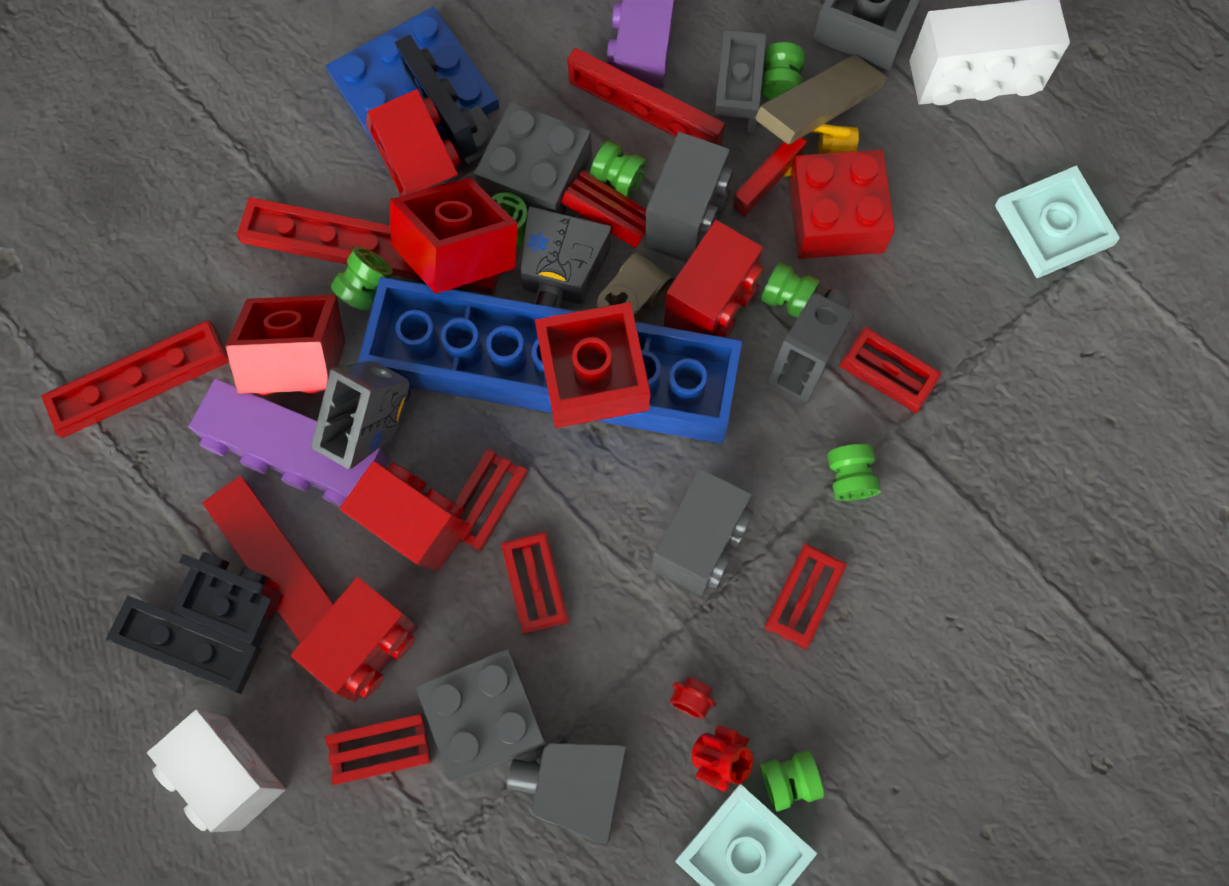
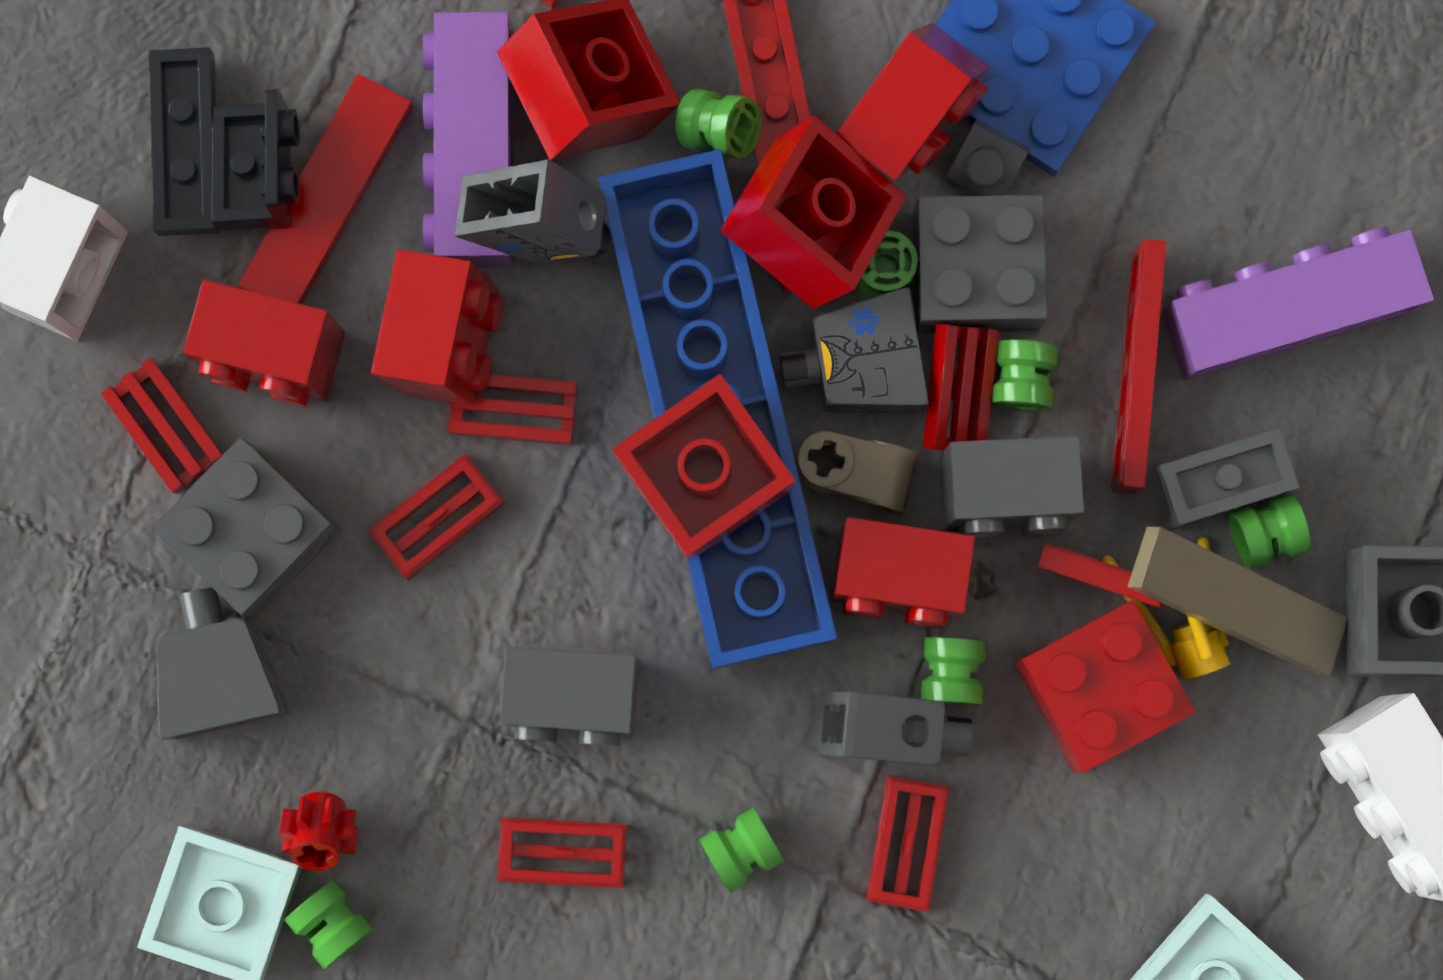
camera: 65 degrees right, 10 degrees up
(422, 71) = (1005, 99): black plate -> none
(692, 698) = (377, 766): red plate -> none

